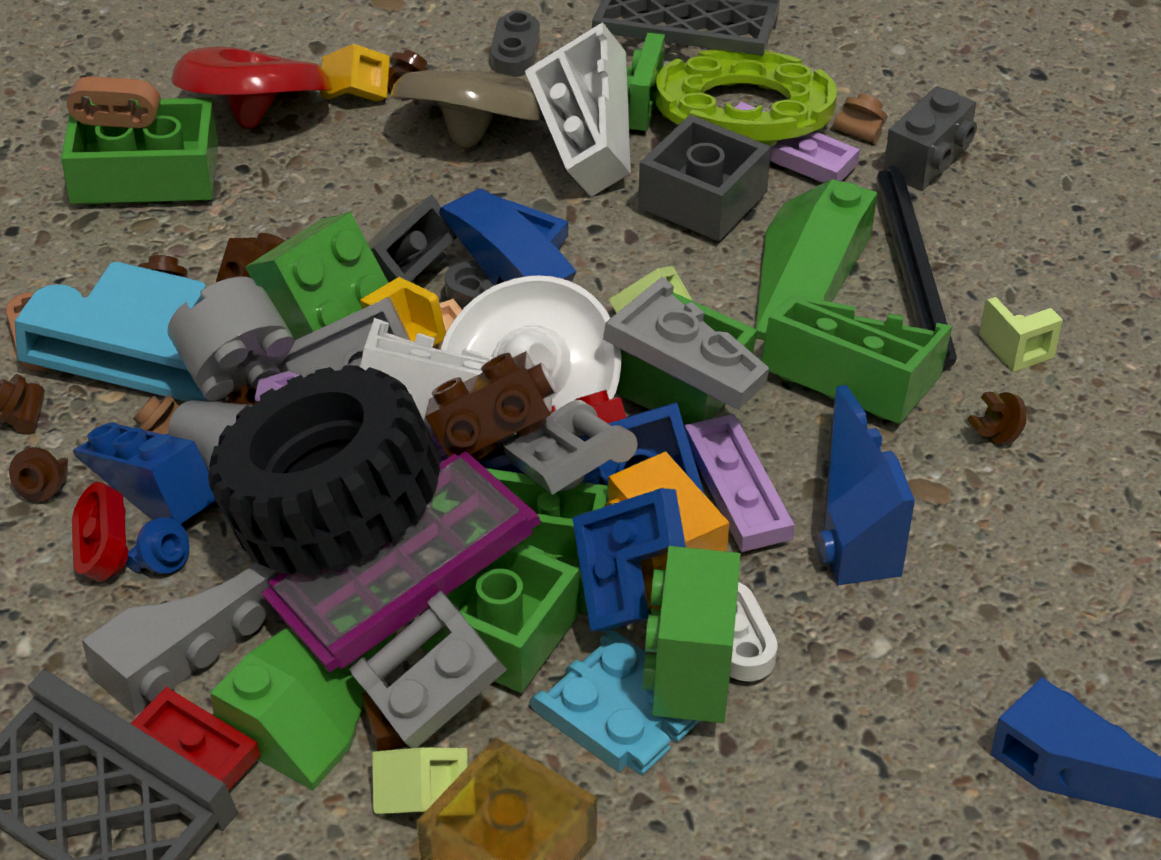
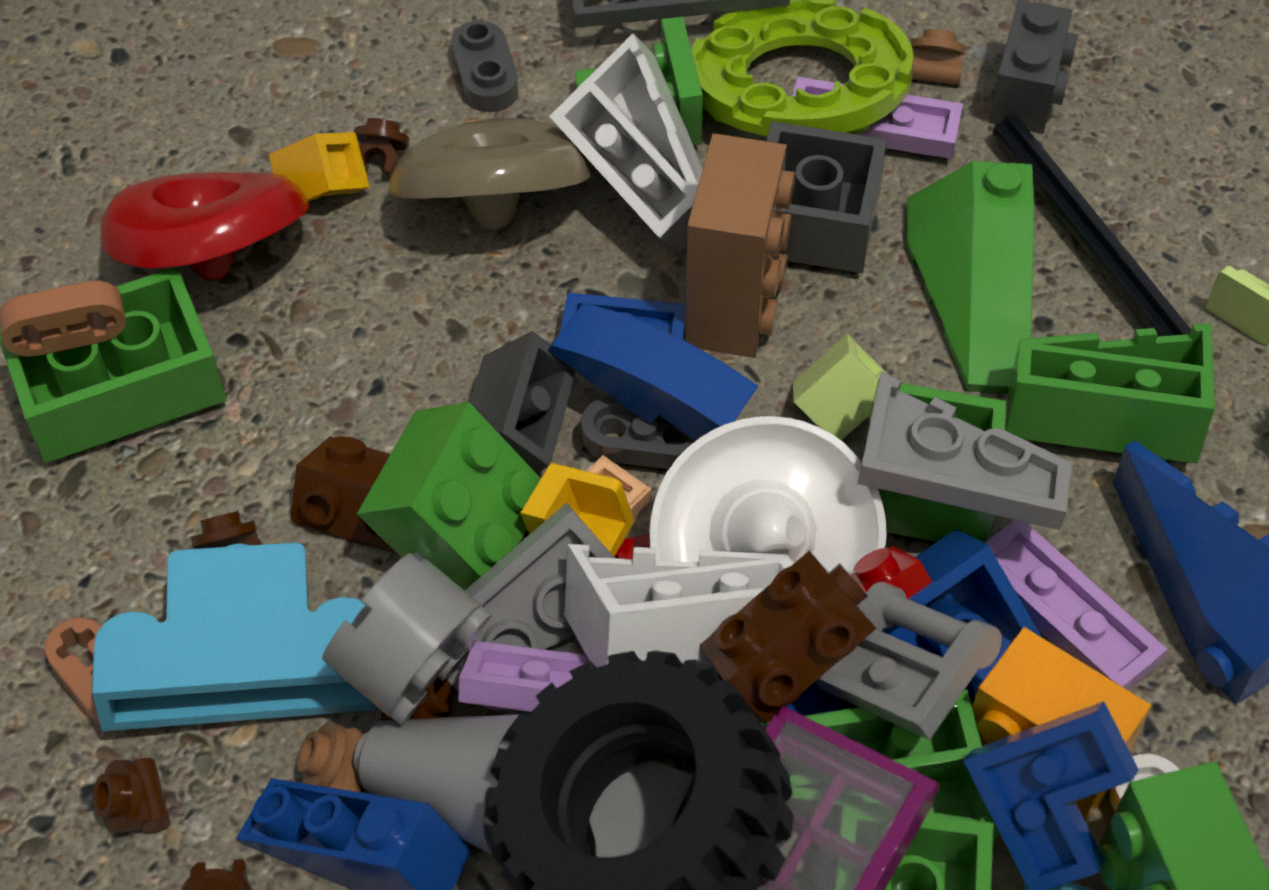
camera: 20 degrees left, 10 degrees up
(610, 181) = (737, 245): none -> medium nougat brick

